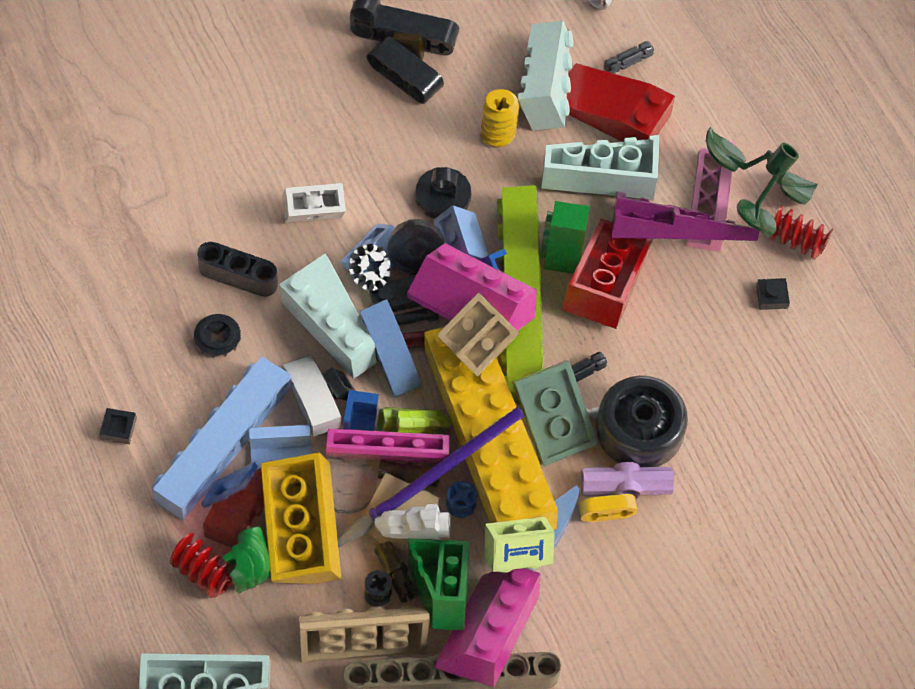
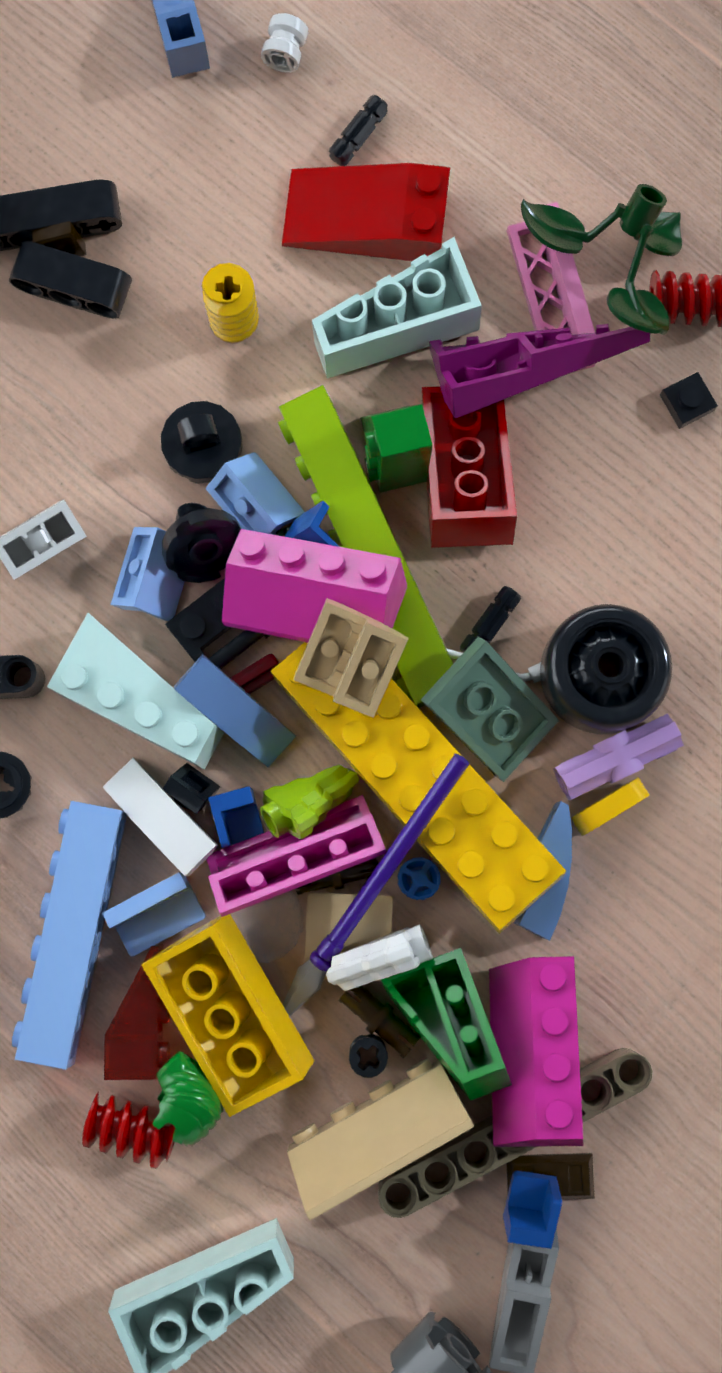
camera: 20 degrees left, 20 degrees up
(229, 484) = (113, 1008): clear blue piece -> none
(359, 262) = (139, 606): gear -> none
(519, 544) = (536, 941): yellowish green brick -> none
(547, 76) = (264, 207): light aqua wedge -> none

